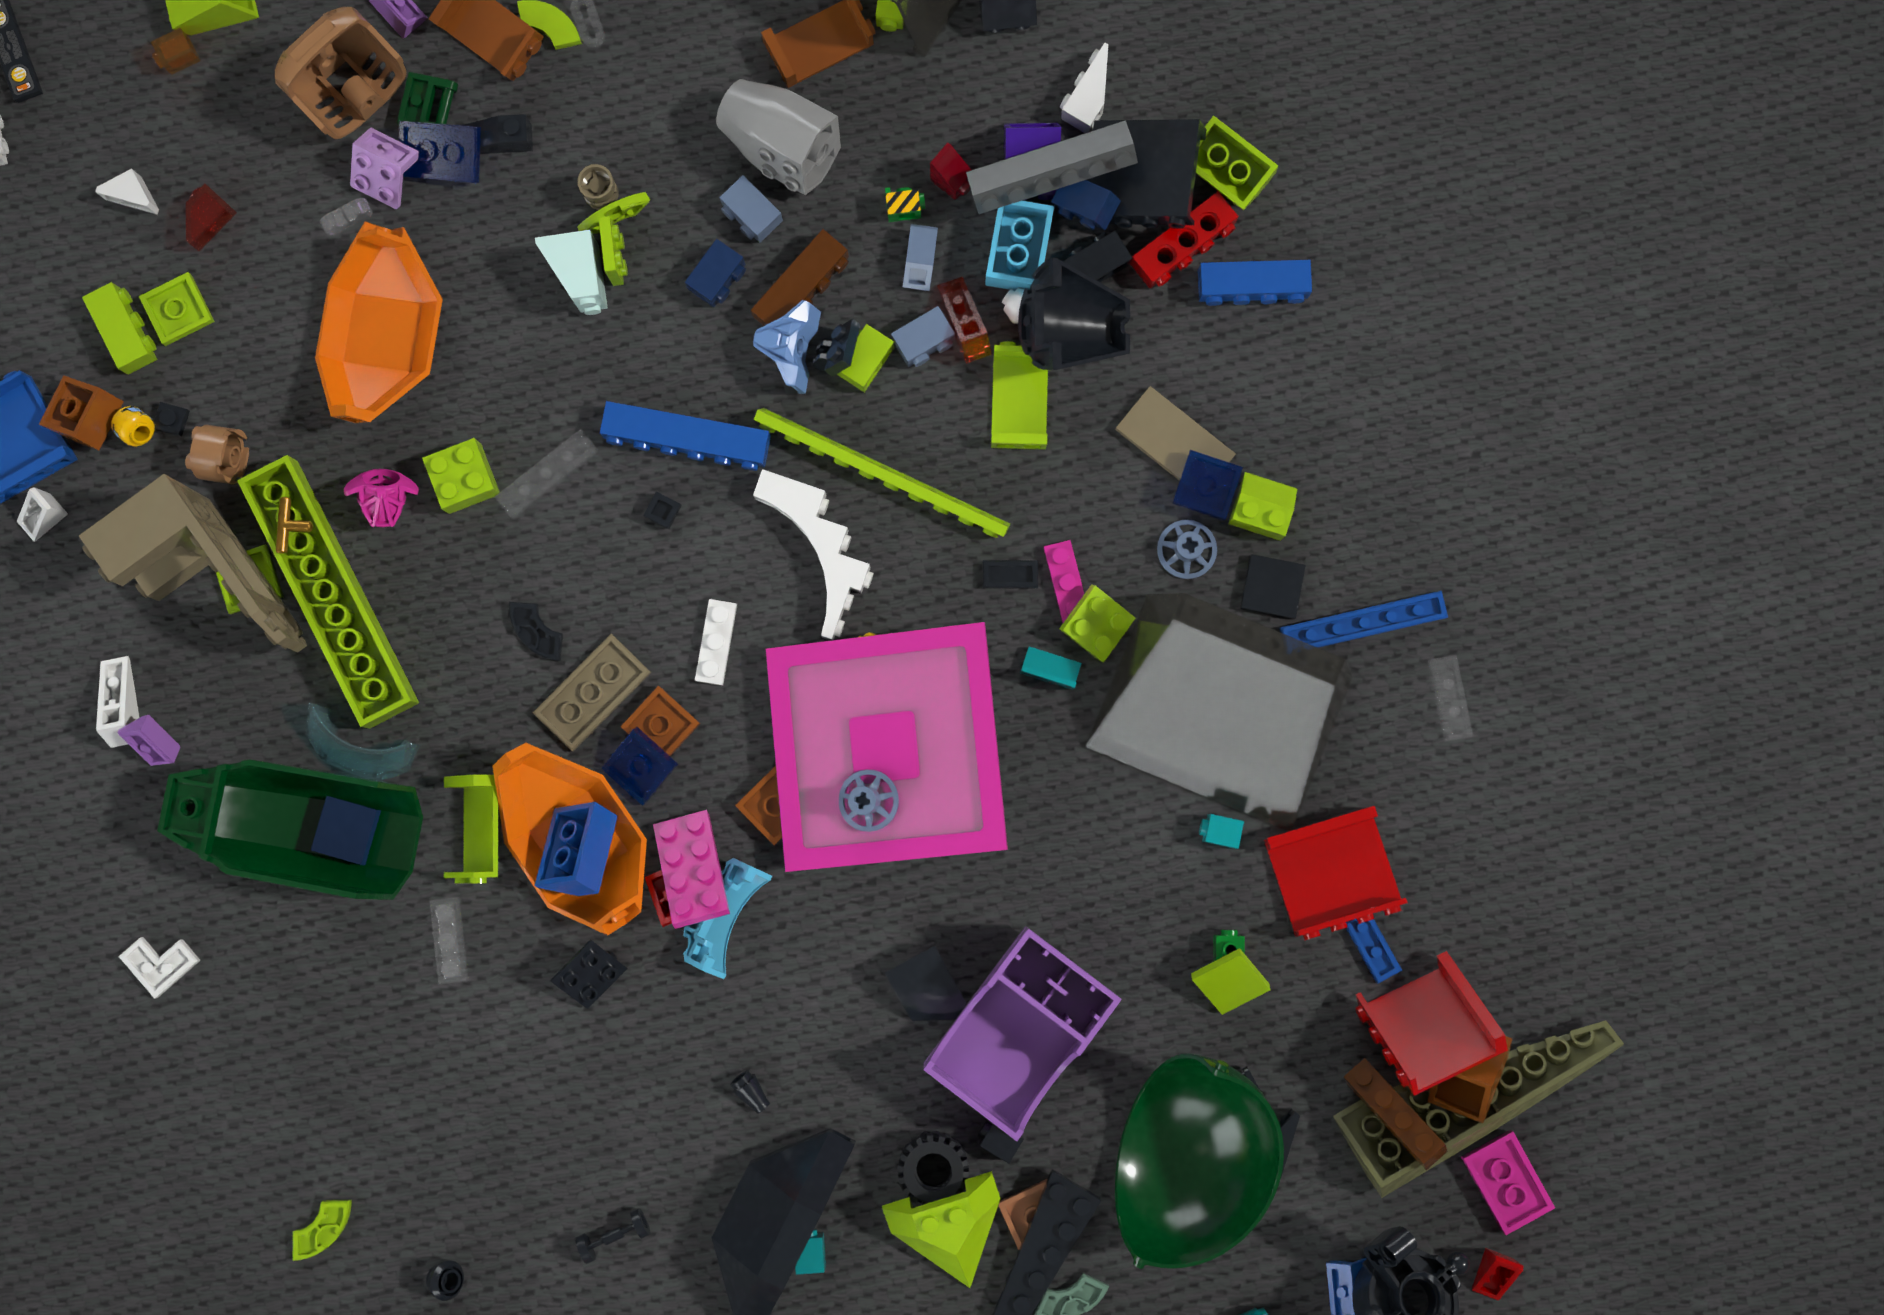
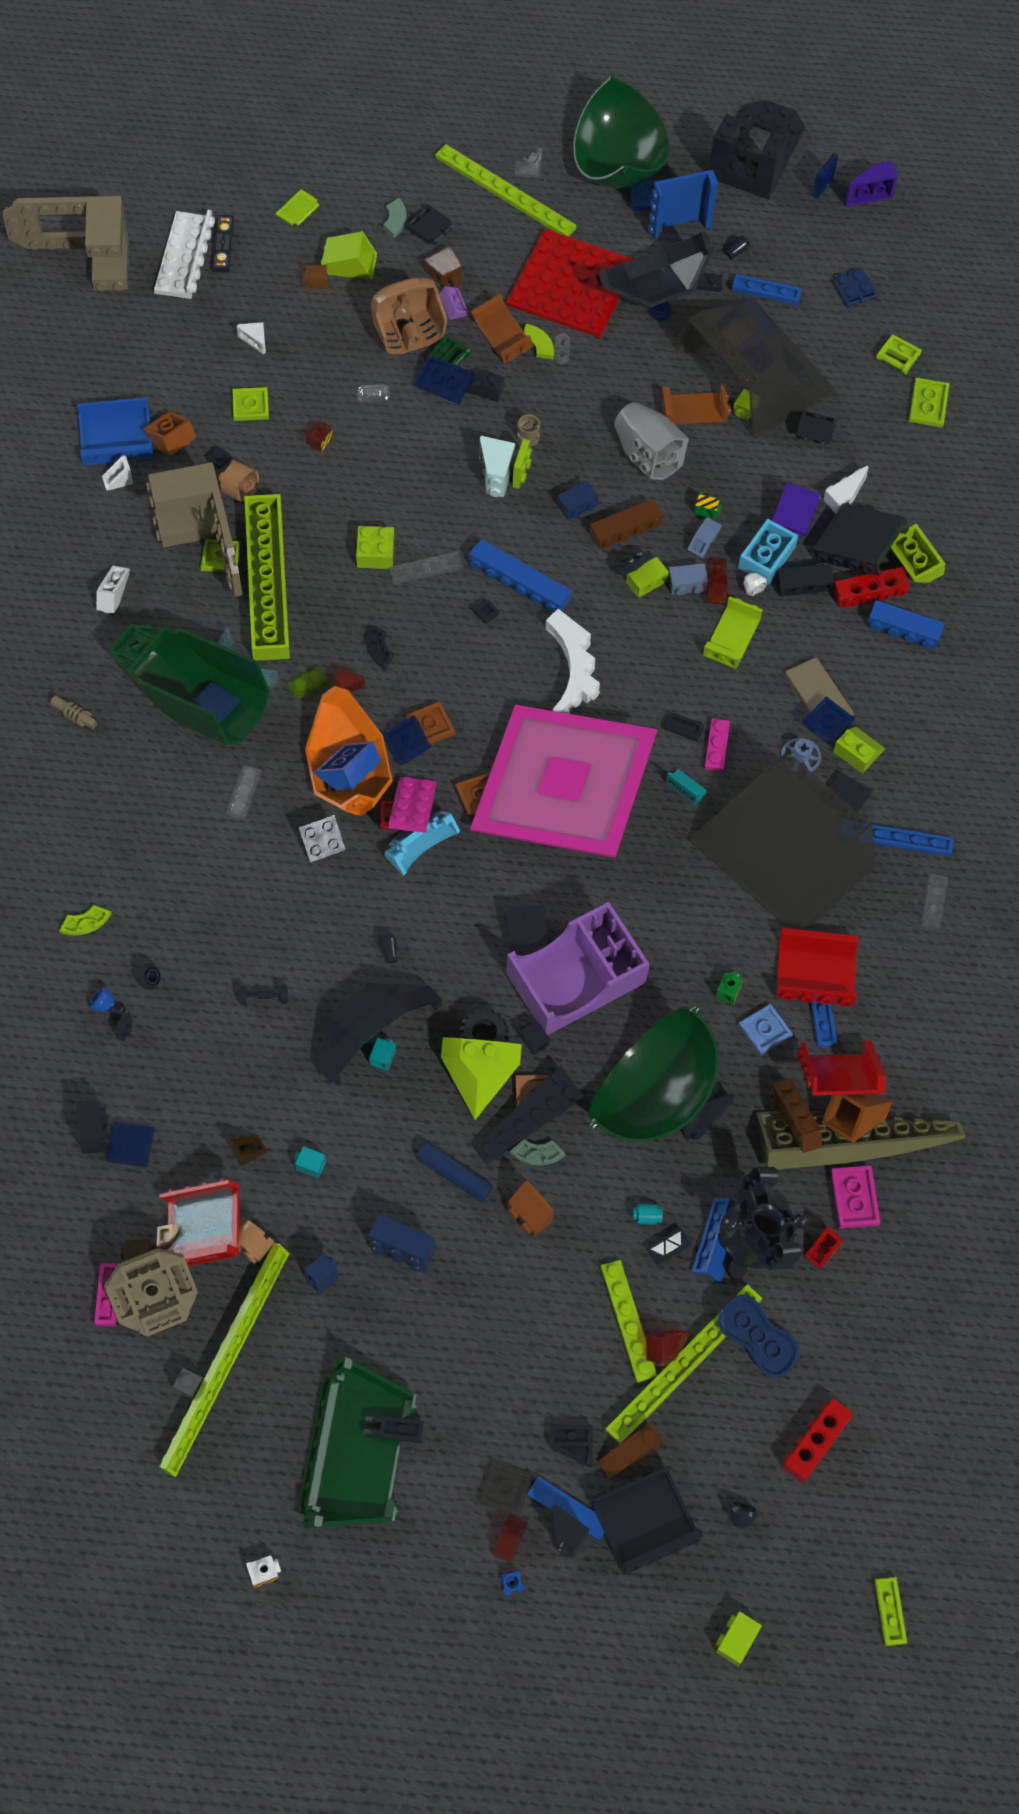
camera: 20 degrees right, 20 degrees down
(120, 327) = (214, 400): lime brick -> none
(132, 426) = (196, 450): yellow head -> none
(150, 741) = (121, 611): medium lavender slope -> none
(156, 921) = (74, 712): none -> dark tan hinge
(156, 971) = (62, 742): white tile -> none
(205, 216) = (292, 363): clear red slope -> none
(286, 525) = (261, 527): pearl gold piece -> none
(306, 329) = (319, 436): none -> clear red brick
(376, 325) = (367, 448): orange panel -> none
(380, 165) = (405, 373): lavender bracket -> none
(381, 503) = (323, 538): dark pink piece -> none
(462, 731) = (308, 683): none -> clear neon green plate
(479, 827) = (304, 713): lime panel -> none
(513, 712) = (348, 680): none -> clear red slope
(592, 692) = (396, 692): dark tan tile -> none
(618, 211) = (539, 446): lime tile -> none
(716, 642) = (485, 694): white plate -> none
(750, 209) = (614, 475): sand blue brick -> none
(788, 341) = (600, 546): medium blue piece -> none
(867, 800) = (539, 801): sand blue wheel -> none
(871, 468) = (634, 645): lime plate -> none
(949, 172) = (743, 498): dark red slope -> none
(1052, 167) = (805, 511): dark grey brick -> none
(1071, 318) = (784, 595): black cone -> none
(1086, 202) = (818, 539): dark blue brick -> none
(1097, 623) = (726, 771): lime plate -> none
(1221, 831) = (754, 917): teal brick -> none
(1230, 981) = (723, 1000): lime tile -> none
(1299, 988) = (765, 1029): none -> medium blue tile

